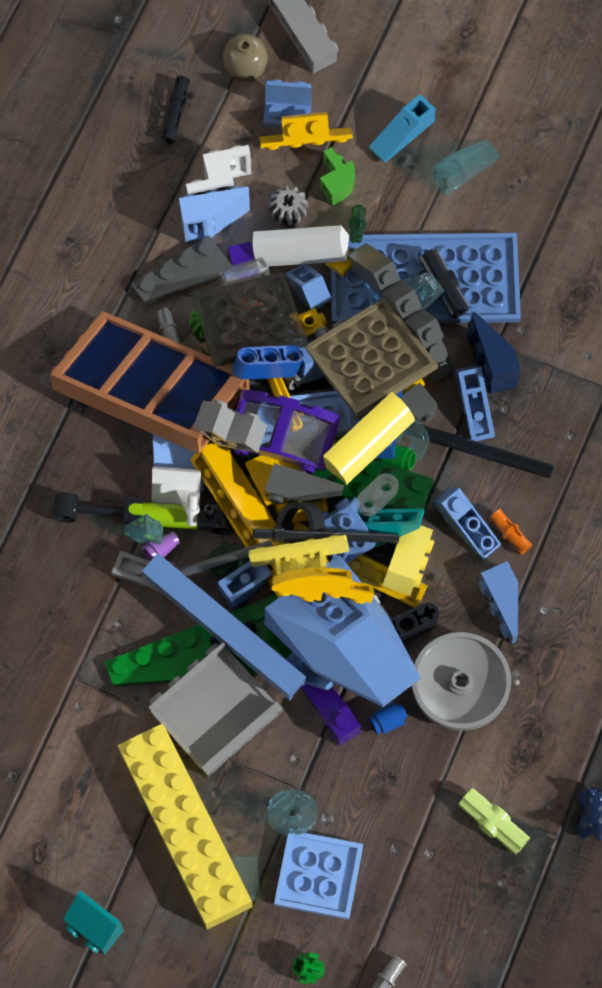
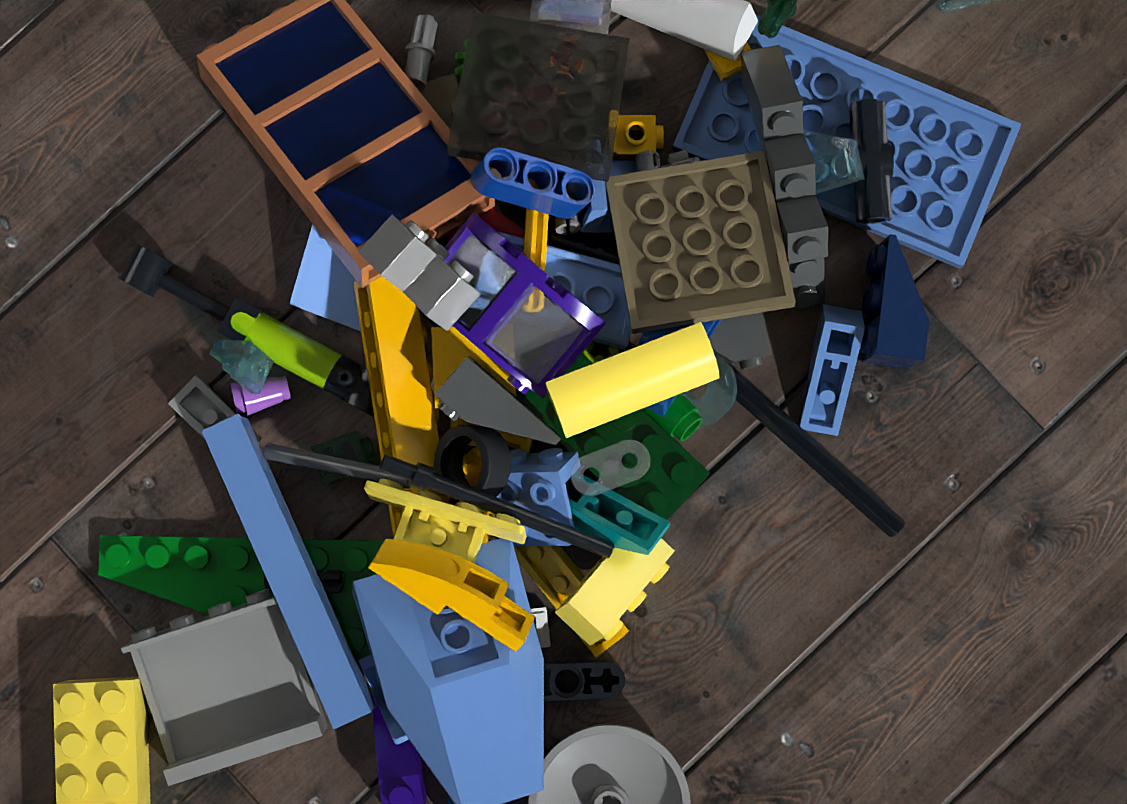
camera: 25 degrees right, 15 degrees up
(178, 487) = (323, 318): white plate -> none
(243, 583) = (348, 511): medium blue slope -> none
(309, 286) = (663, 74): medium blue slope -> none
(466, 521) = (732, 554): medium blue slope -> none
(502, 590) = (737, 693): medium blue slope -> none
(510, 531) = (792, 599): orange pin -> none

